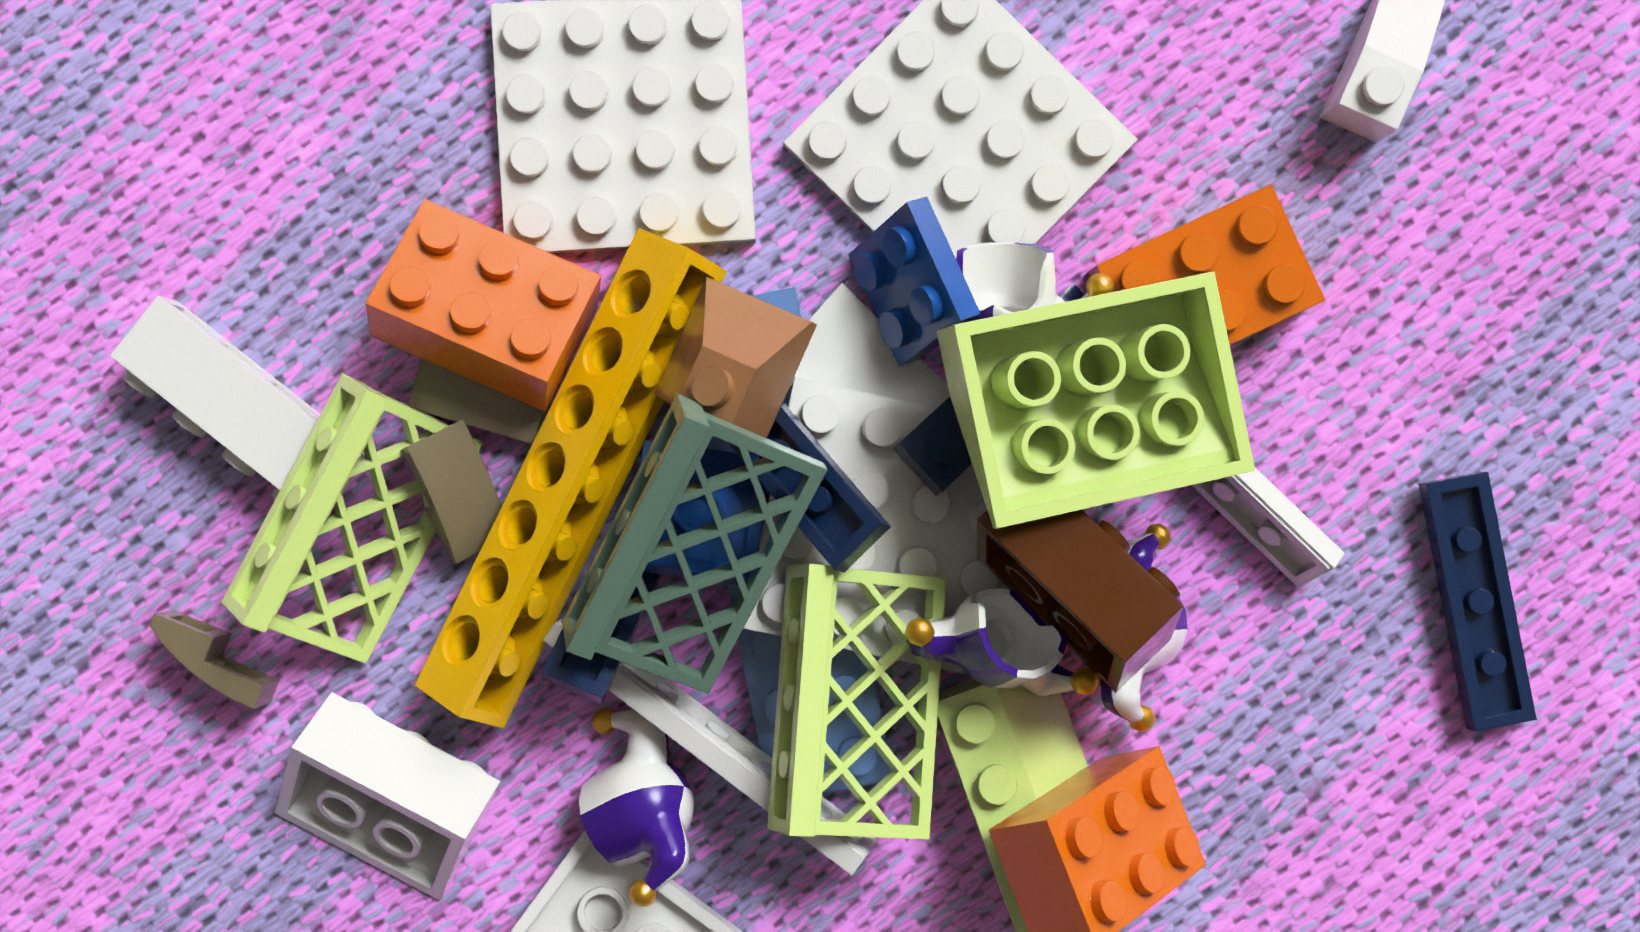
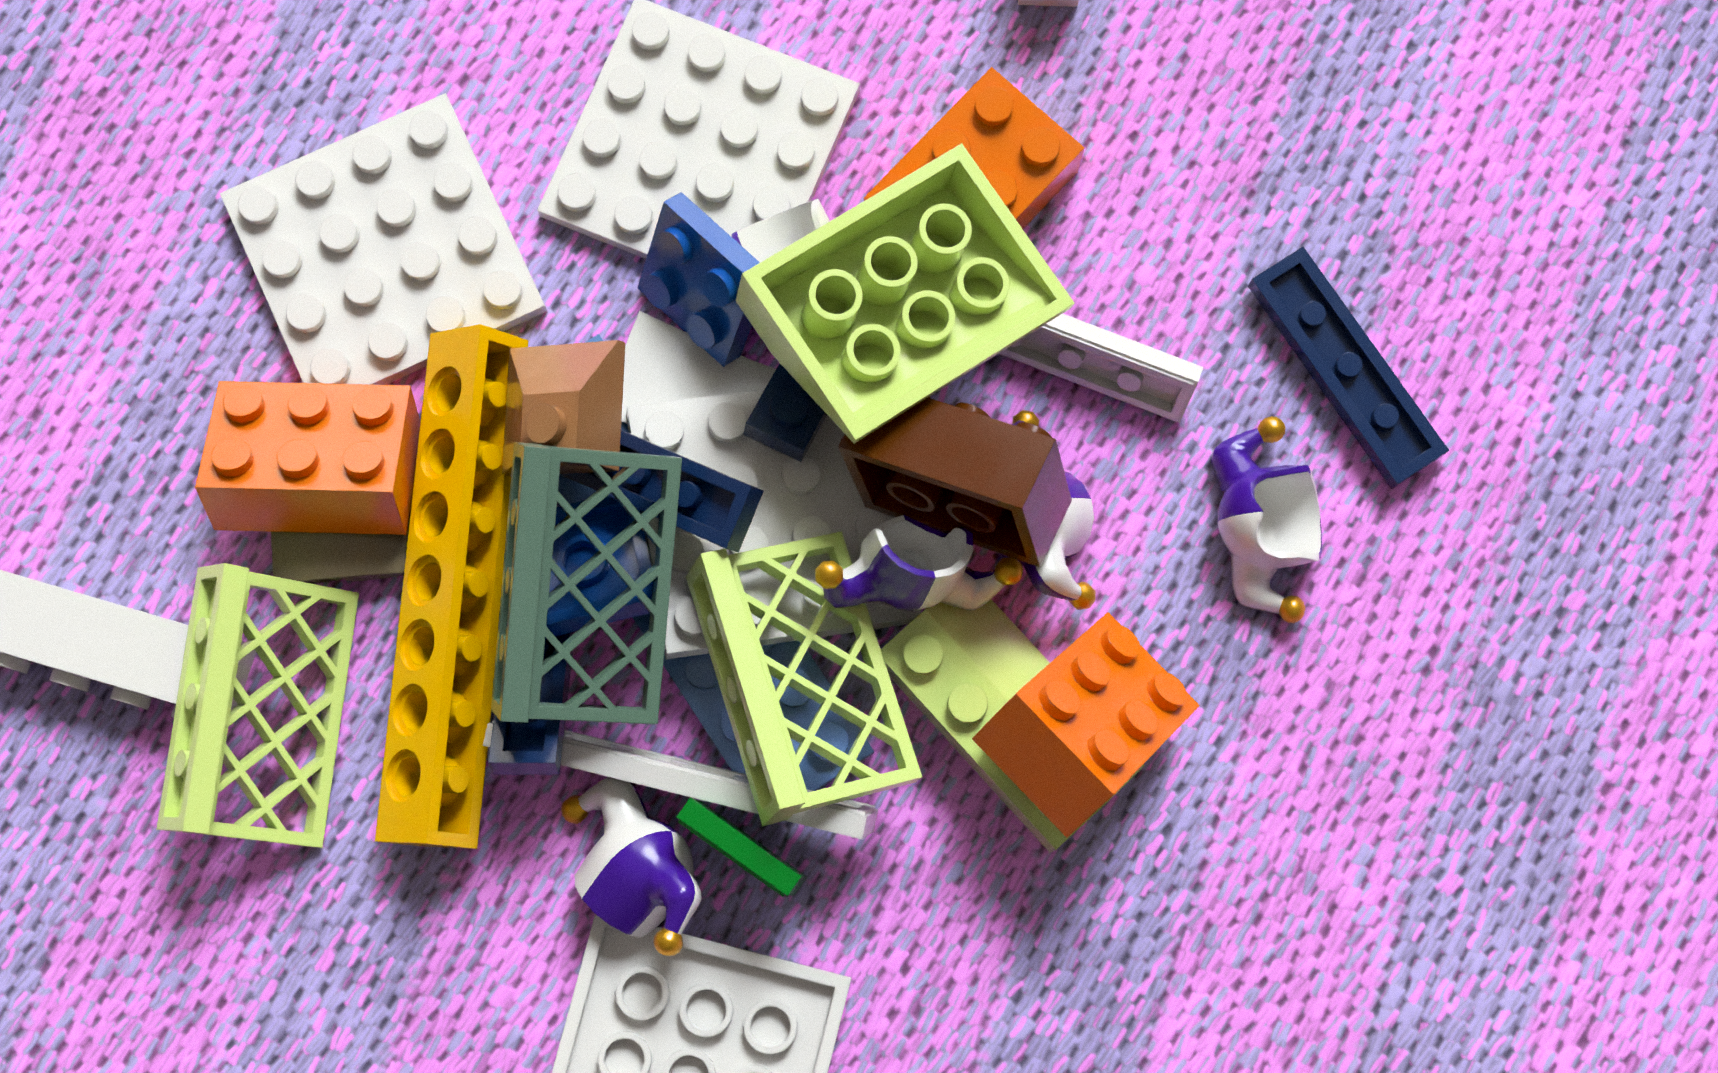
camera: 15 degrees left, 10 degrees down
(201, 651) = (159, 894): dark tan slope -> none
(384, 794) = (385, 966): white slope -> none
(456, 488) = (346, 638): dark tan slope -> none
(743, 834) = (741, 848): none -> green tile
(1339, 712) = (1265, 519): none -> white piece

